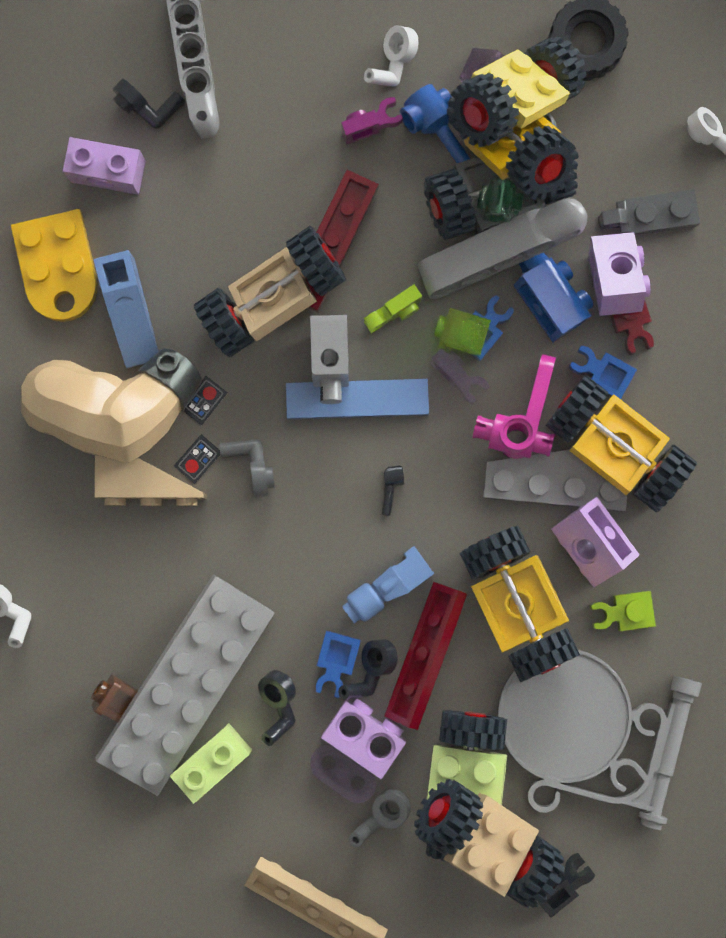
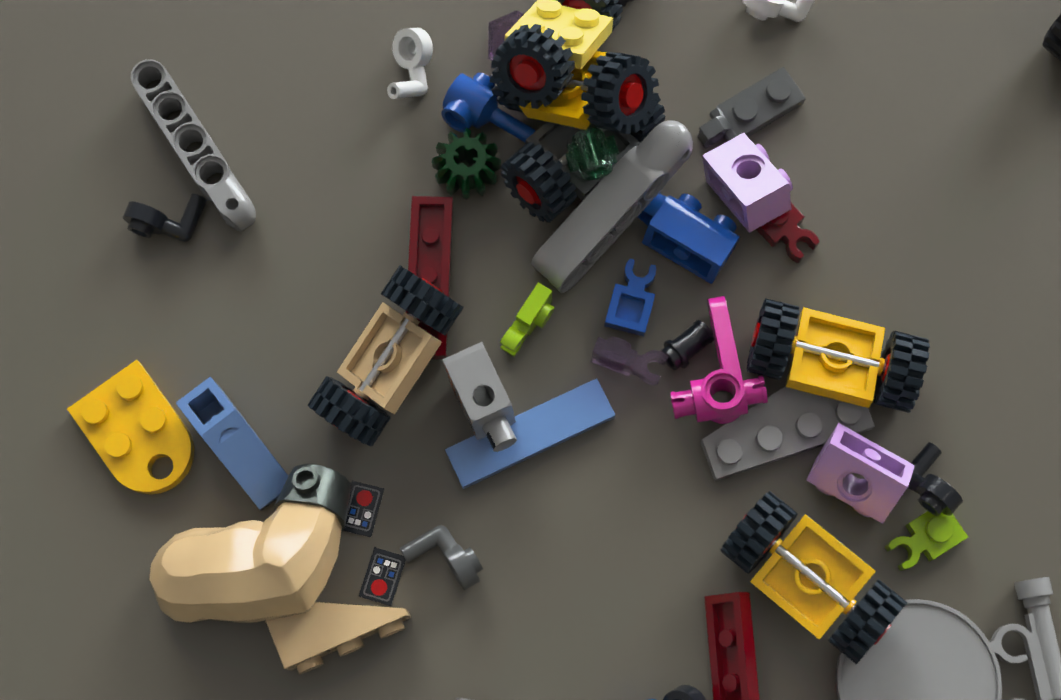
camera: 25 degrees left, 10 degrees down
(104, 165) = (146, 301): lavender brick -> none
(363, 124) = (409, 144): magenta plate -> none
(392, 476) = (606, 501): black hand -> none
(394, 582) = (661, 618): medium blue piece -> none
(412, 154) = (460, 176): none -> dark green gear
(462, 331) = (611, 311): clear neon green bracket -> none
(509, 383) = (687, 345): none -> black pin
(608, 372) = (785, 286): blue plate -> none
(644, 583) = (934, 492): none -> black plate

